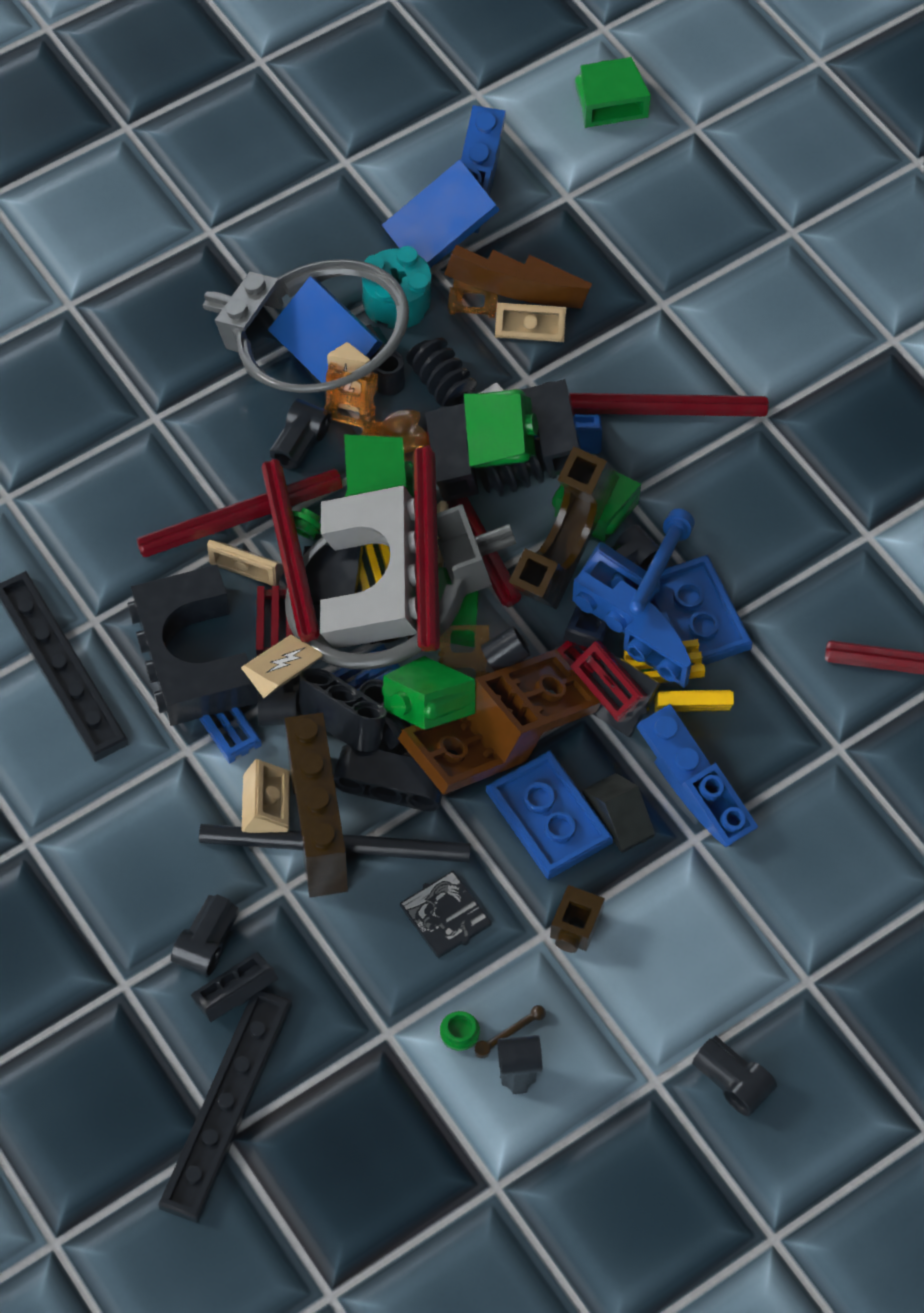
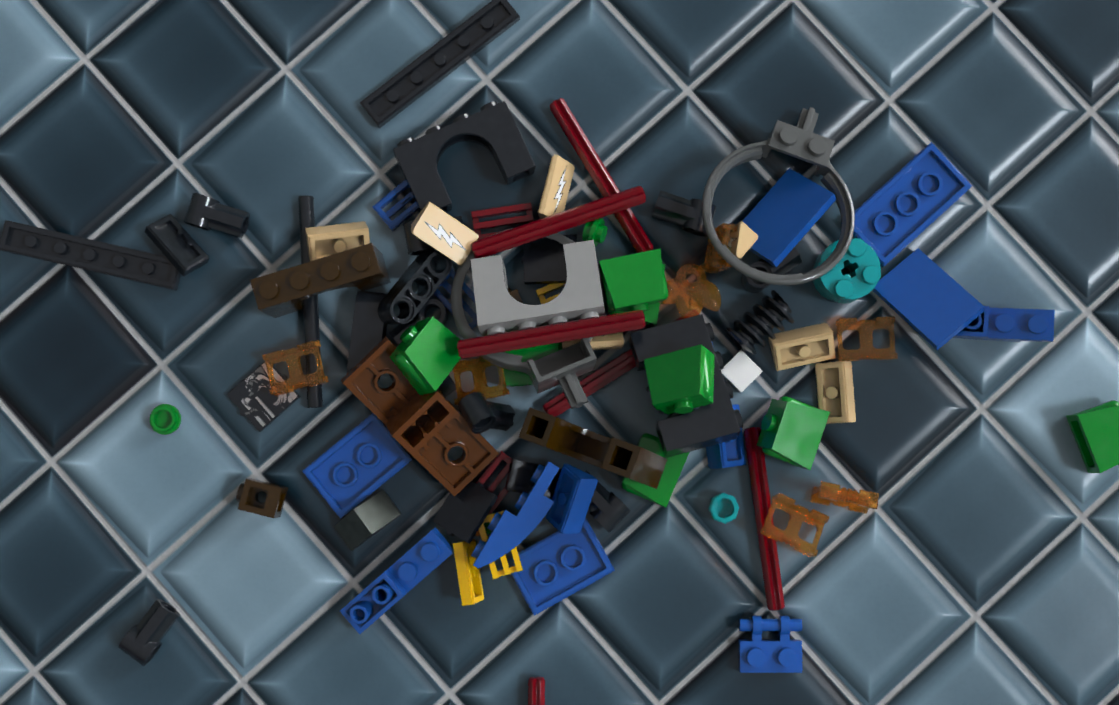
camera: 85 degrees right, 25 degrees up
(325, 224) = (909, 203): none -> blue tile
(431, 859) = (296, 376): none -> clear orange piece
(474, 343) = (802, 346): none -> tan slope
(482, 1048) = (156, 438): dark brown hinge -> none
(519, 1062) = (128, 467): black piece -> none
(528, 282) = (869, 388): reddish brown slope -> none
(571, 356) = (792, 431): none -> green torso
(630, 704) = (472, 504): dark red tile -> none
(647, 440) = (723, 508): none -> teal tile
(649, 321) = (856, 502): none -> clear orange piece
(664, 370) = (797, 516): none -> clear orange piece
(677, 528) = (635, 542): blue piece -> none
(818, 417) = (770, 655): none -> blue plate

